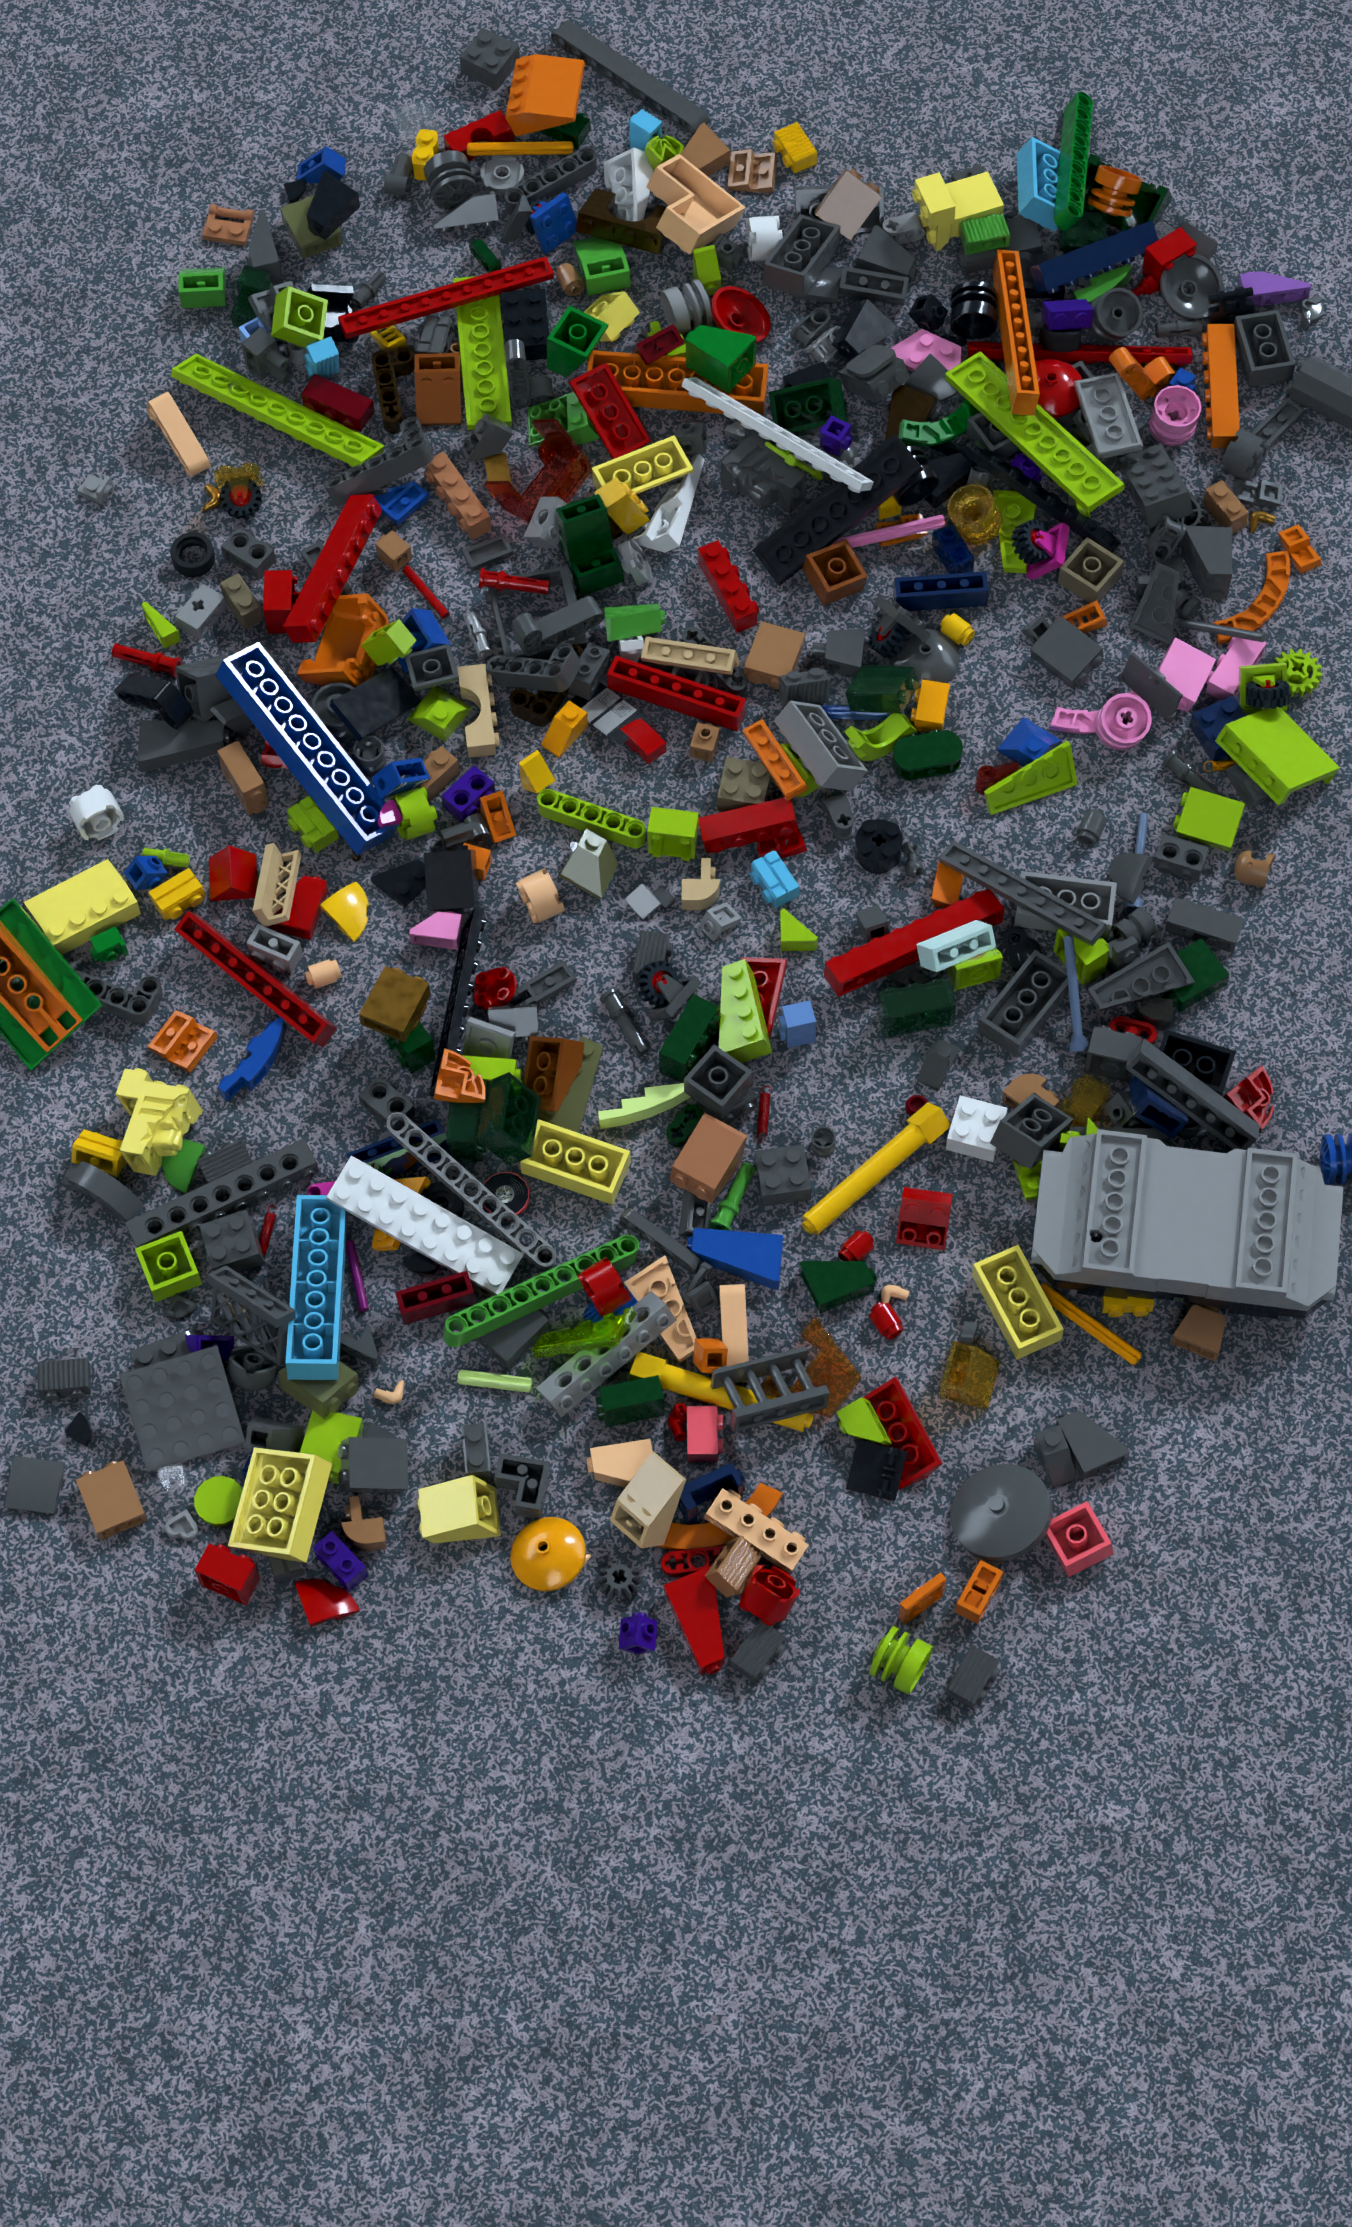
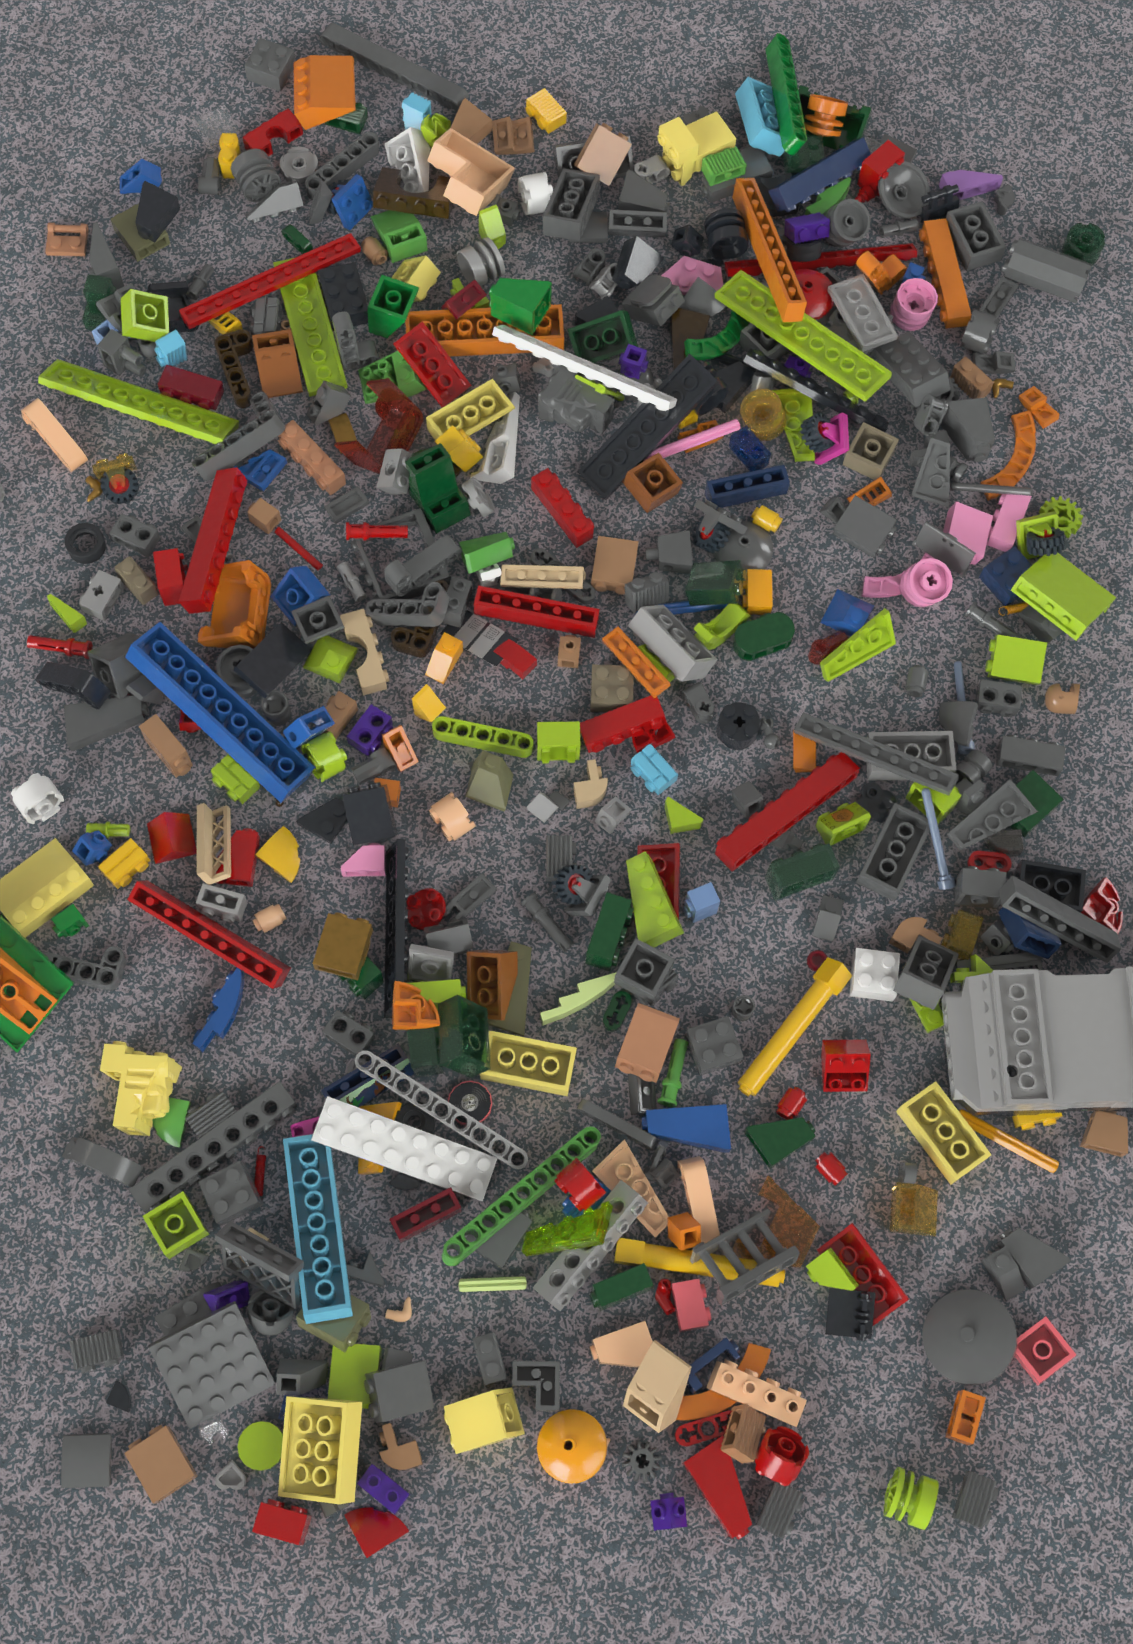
camera: 15 degrees left, 5 degrees up
(99, 1151) = (92, 1123): yellow brick -> none
(182, 1041) = (152, 1001): orange slope -> none
(202, 287) = (53, 298): bright green slope -> none
(295, 190) = (120, 201): black tile -> none
(356, 1276) = (349, 1203): magenta bar -> none
(389, 643) = (276, 602): lime brick -> none
(389, 815) = (304, 763): dark pink tile -> none
(520, 148) = (310, 140): light orange axle -> none
(740, 312) = (527, 261): red dish -> none
(763, 1114) = (684, 988): red piece -> none
(893, 1291) = (828, 1138): light nougat animal -> none
(922, 1598) = (917, 1434): orange plate -> none
(956, 945) = (827, 810): light aqua brick -> none

